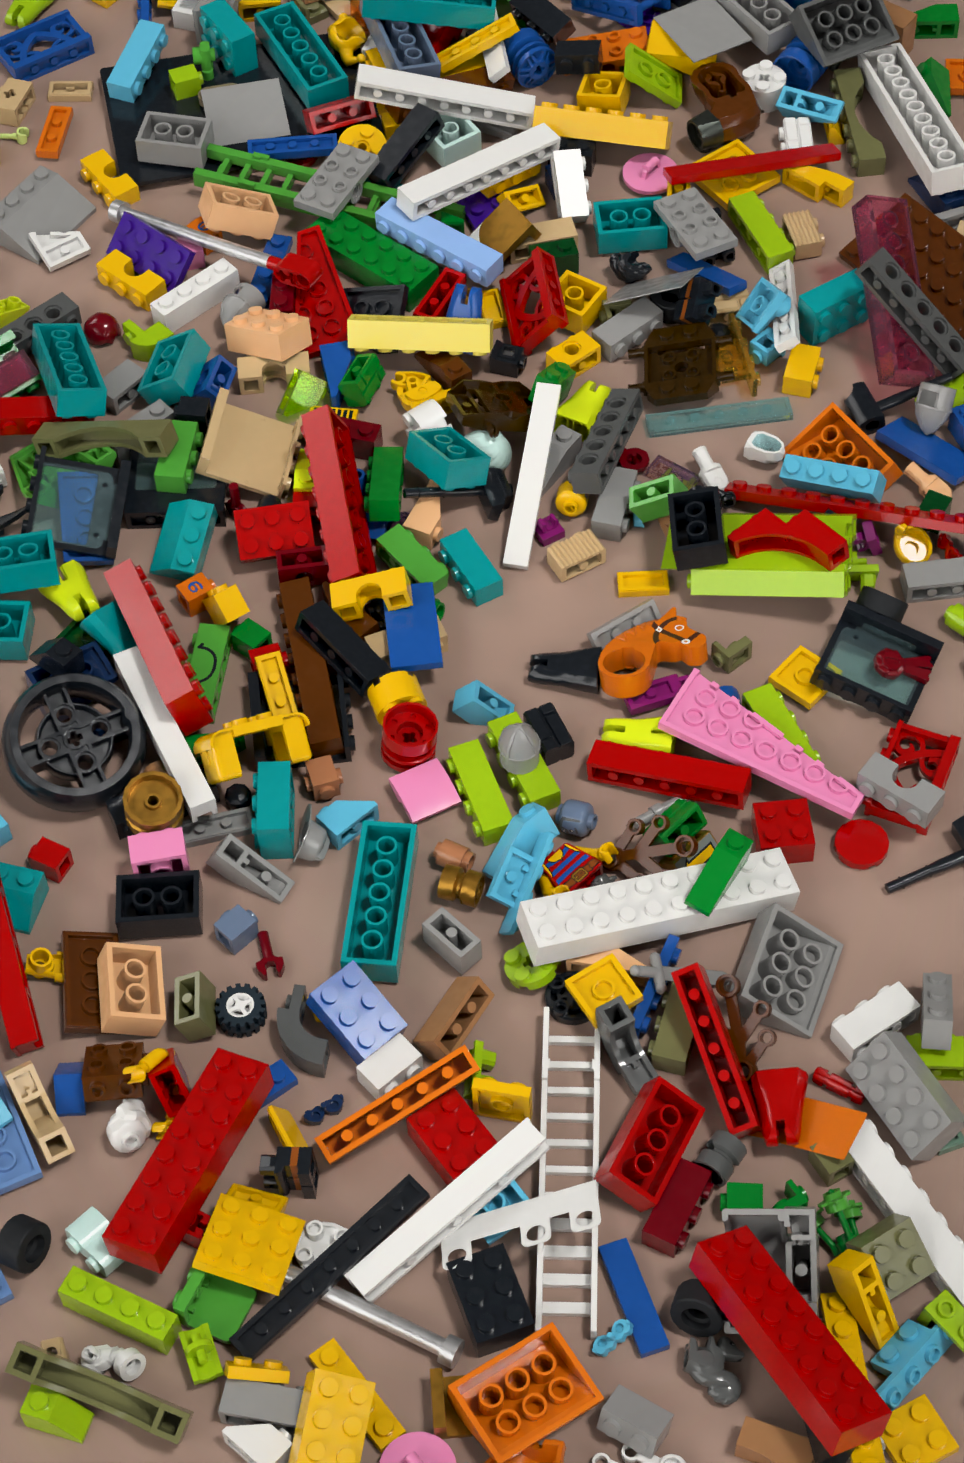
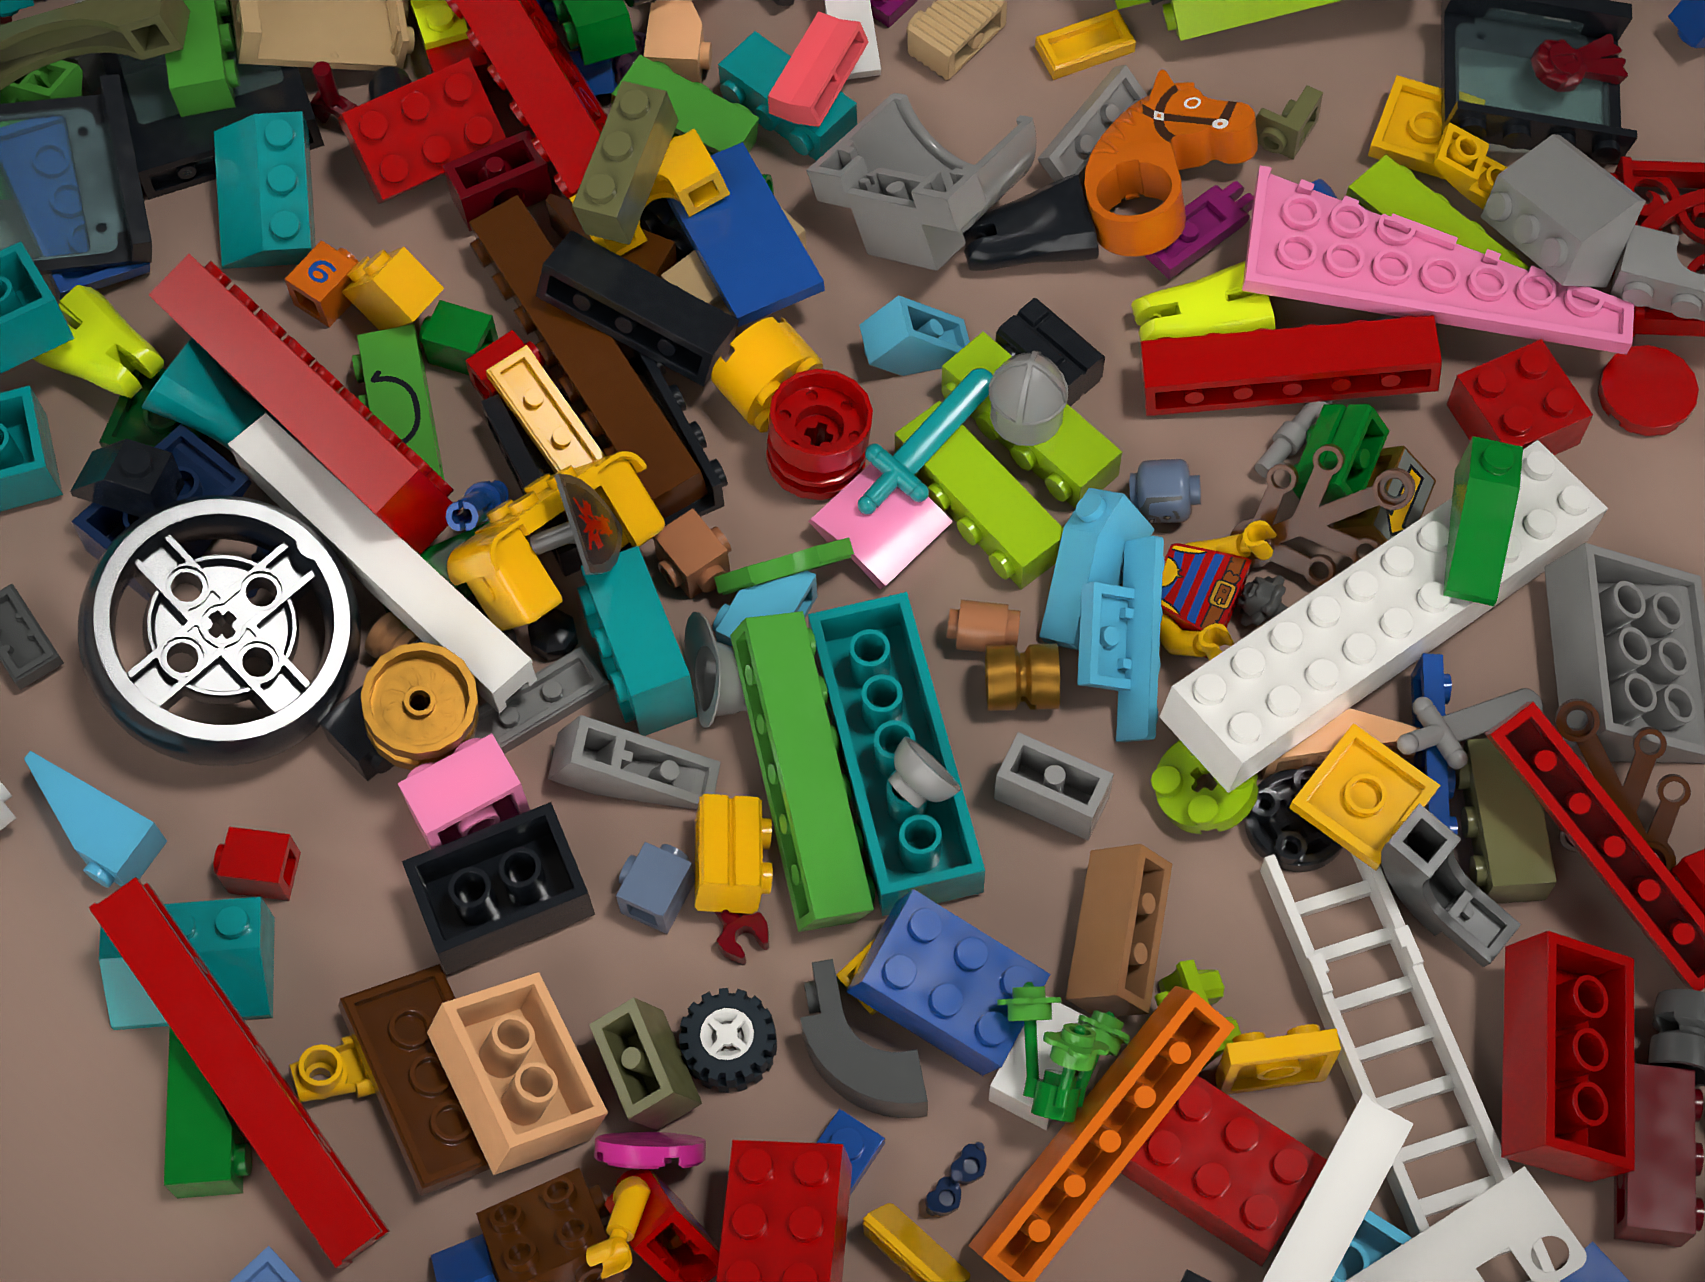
camera: 20 degrees left, 10 degrees up
(180, 1044) = (649, 1149): none -> dark pink tile
(218, 718) = (476, 503): none -> blue pin
(266, 741) = (589, 526): none -> shield
(277, 923) = (730, 854): none -> yellow brick
(328, 894) = (802, 771): none -> bright green brick
(360, 573) = (625, 162): none -> olive brick
(380, 796) = (784, 566): none -> bright green tile
(381, 909) = (920, 775): none -> light grey piece
(395, 1052) = (1072, 1048): none -> plant
(443, 765) = (923, 444): none -> teal sword
(487, 556) = (817, 70): none -> coral piece
(512, 627) = (910, 190): none -> light grey piece
(816, 706) = (1465, 166): none -> yellow slope
(845, 737) = (1564, 213): none -> light grey slope

